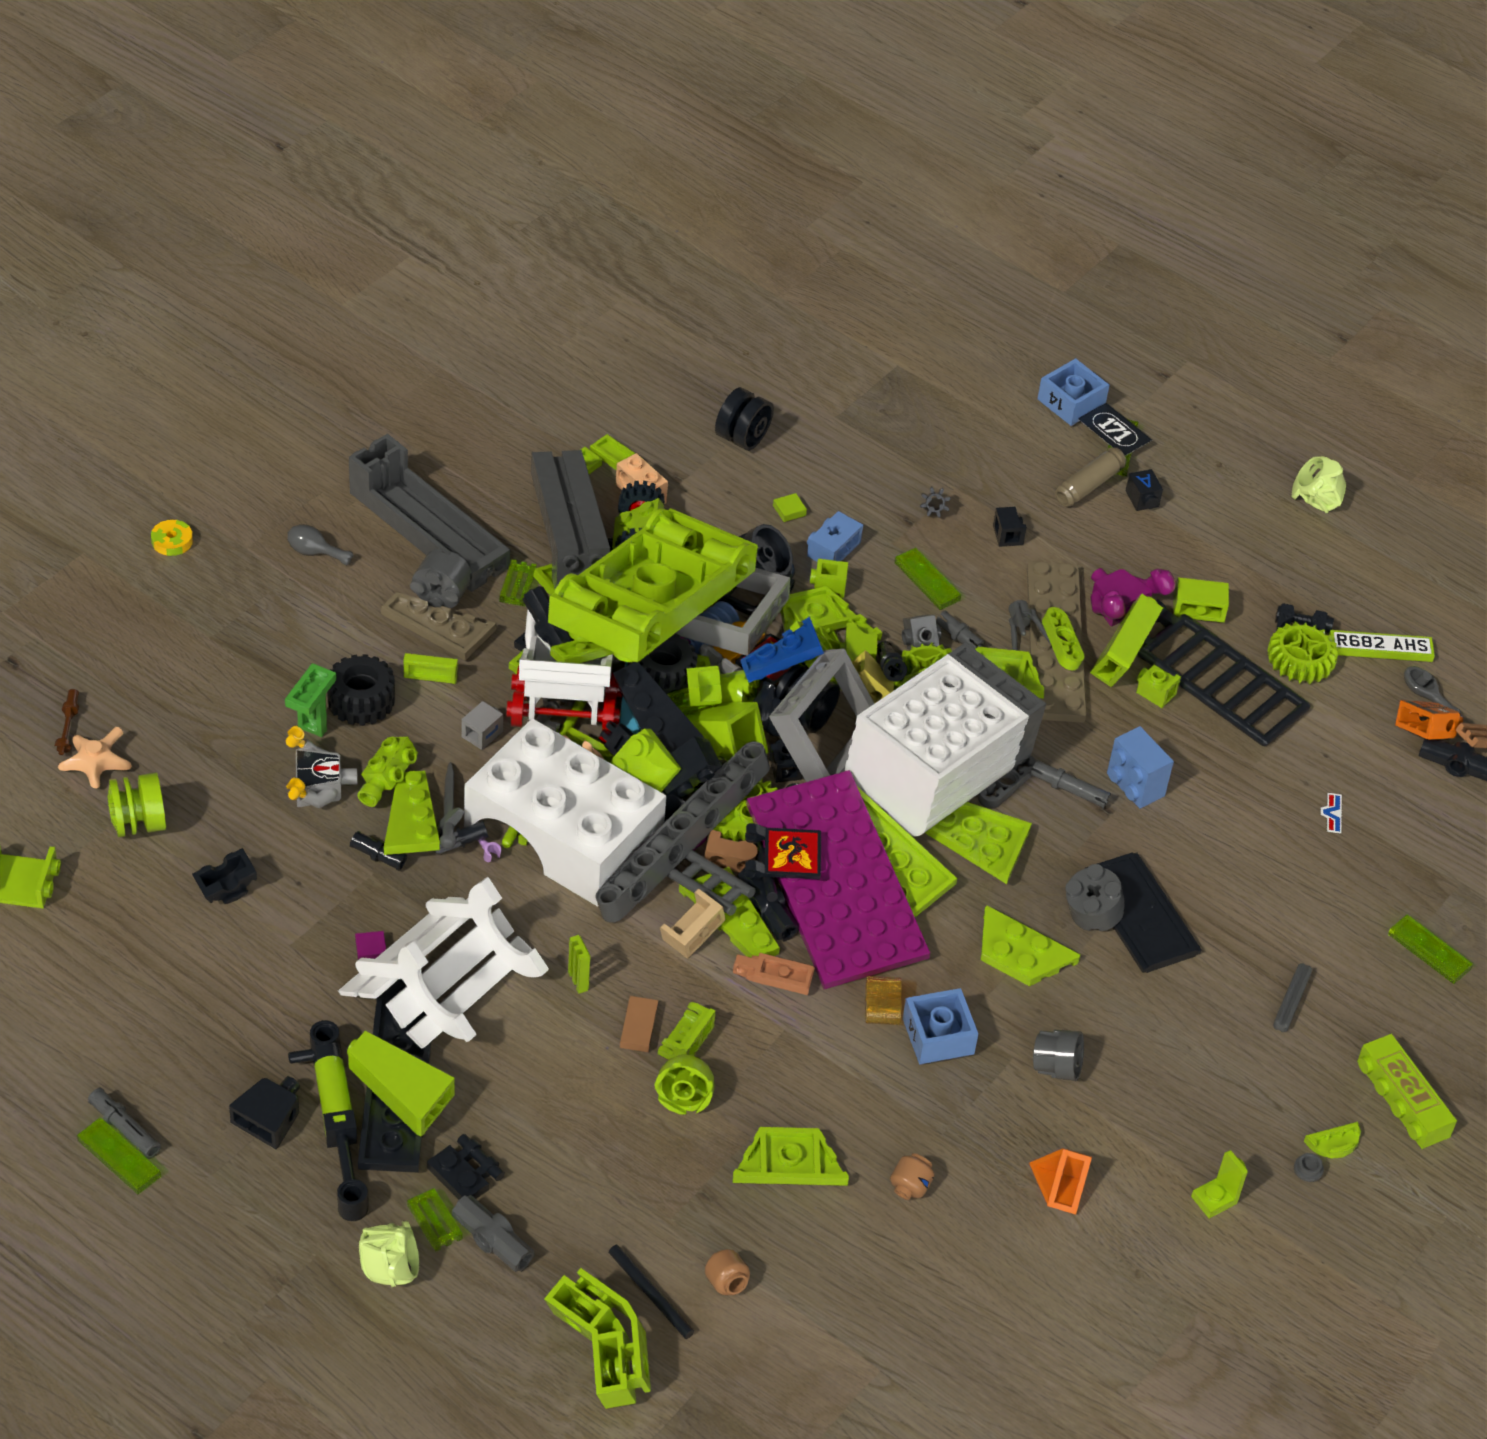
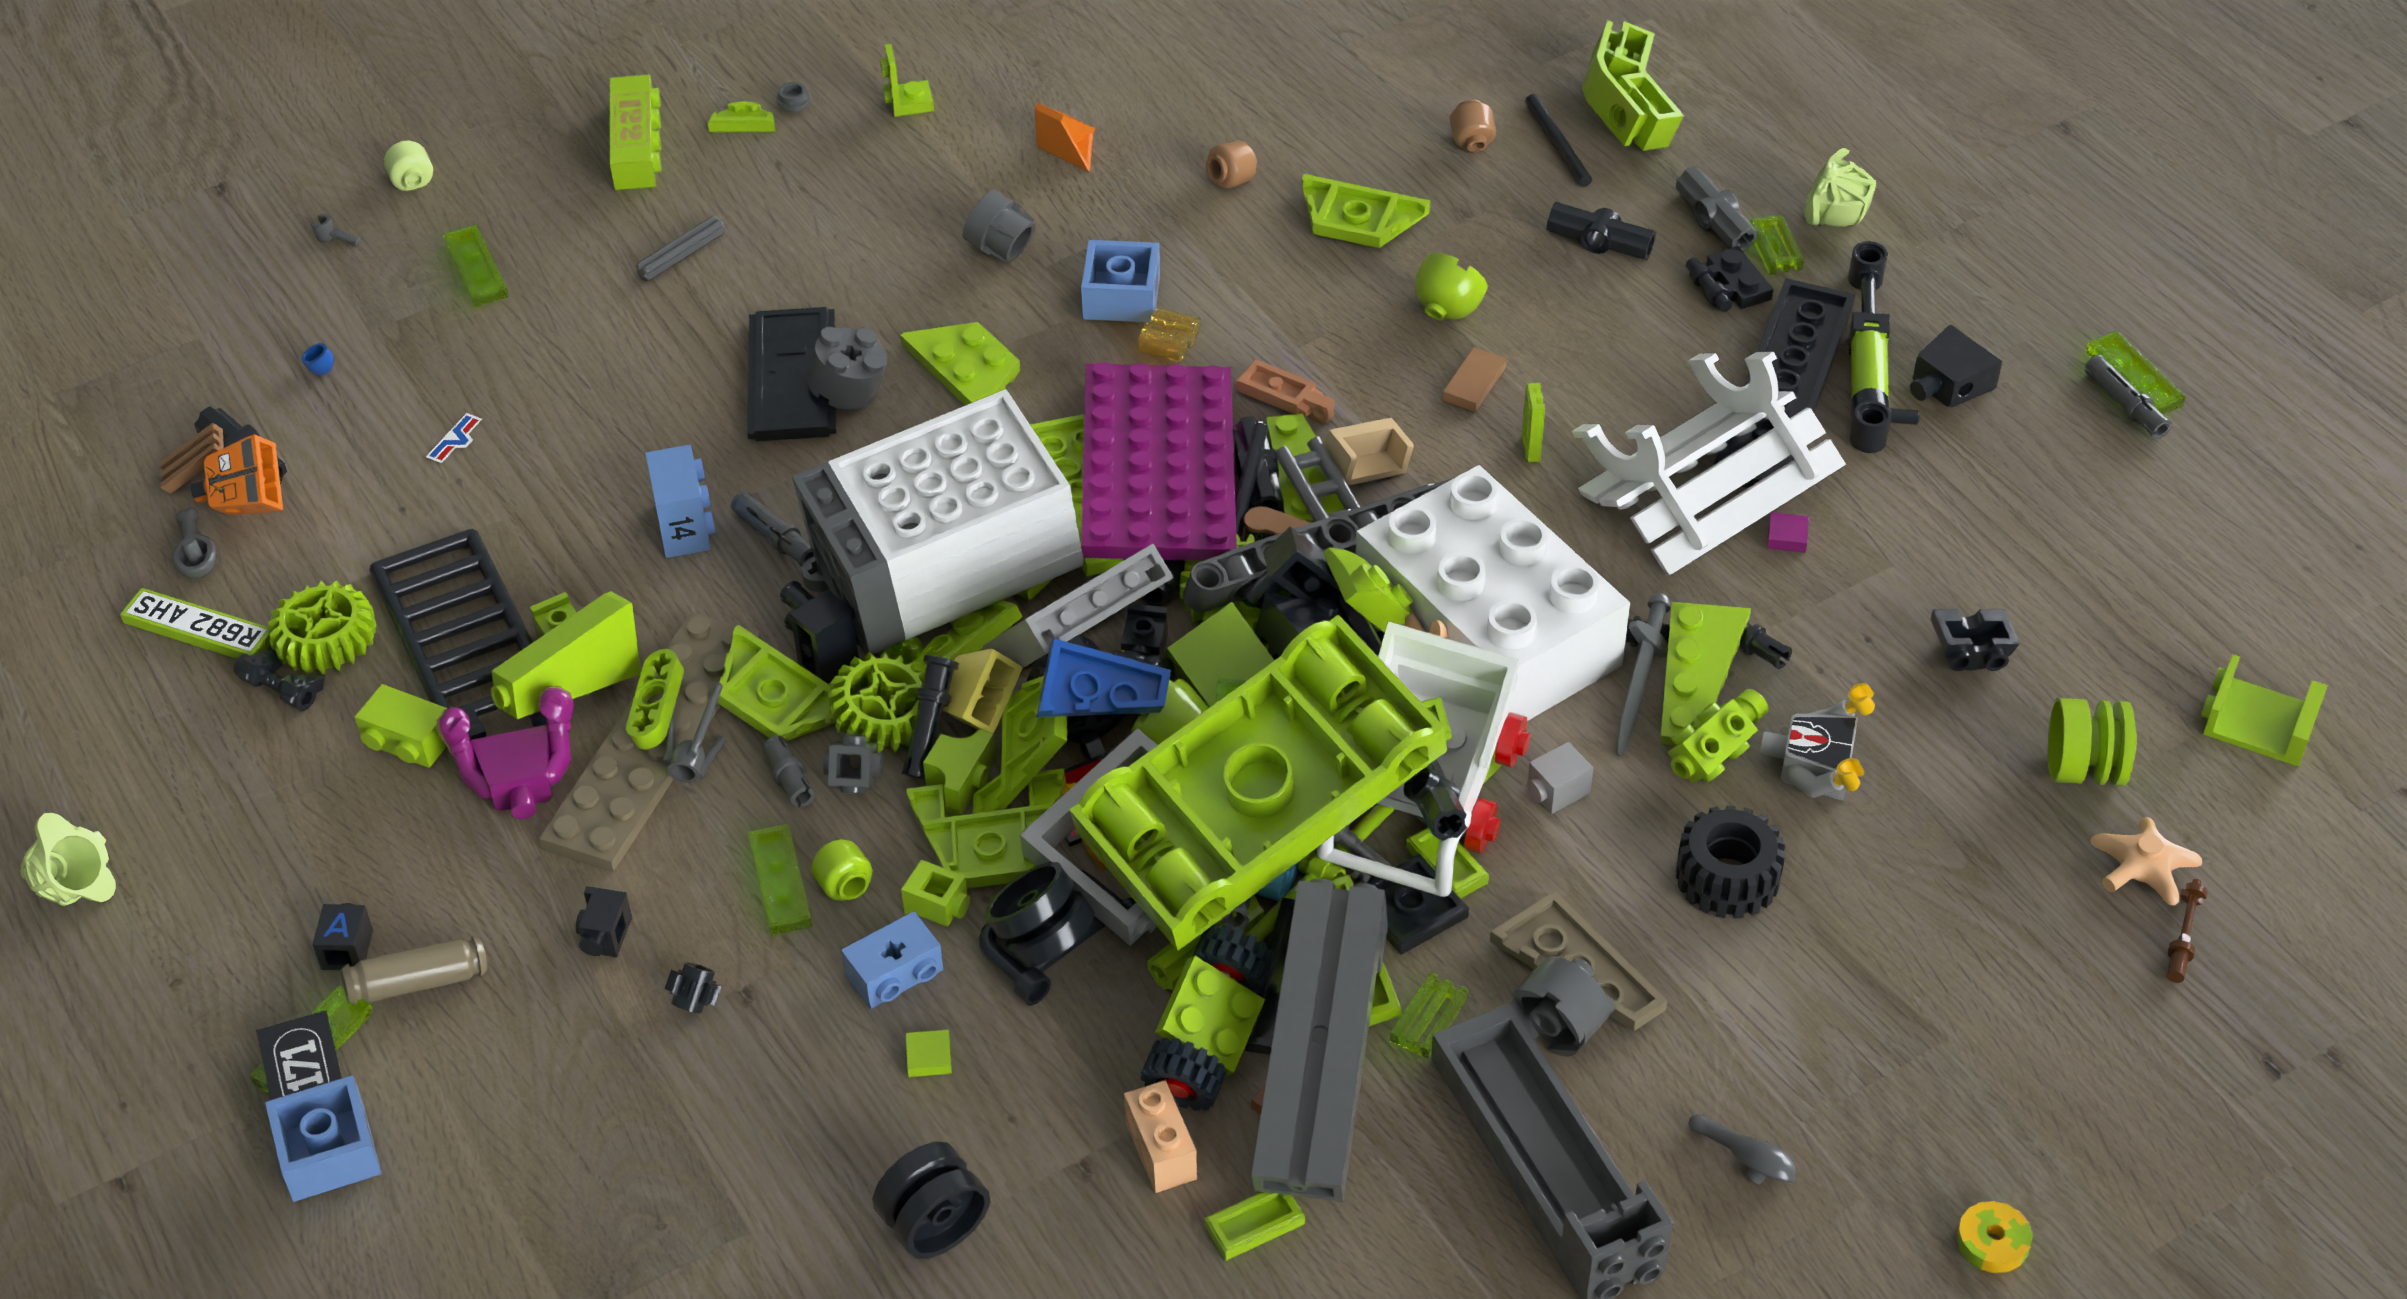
camera: 155 degrees left, 0 degrees up
(309, 699) = (1816, 810): bright green bracket -> none
(401, 1081) = (1804, 350): lime slope -> none
(430, 668) = (1613, 883): lime tile -> none
(583, 1185) = (1601, 230): none -> black piece
(611, 450) = (1174, 1231): lime tile -> none
(689, 1032) = (1421, 348): lime hinge -> none
(704, 685) = (1225, 678): lime panel -> none
(787, 853) = (1219, 472): flag -> none
(891, 577) = (841, 870): none -> lime head
(1469, 837) = (318, 359): none -> blue hinge

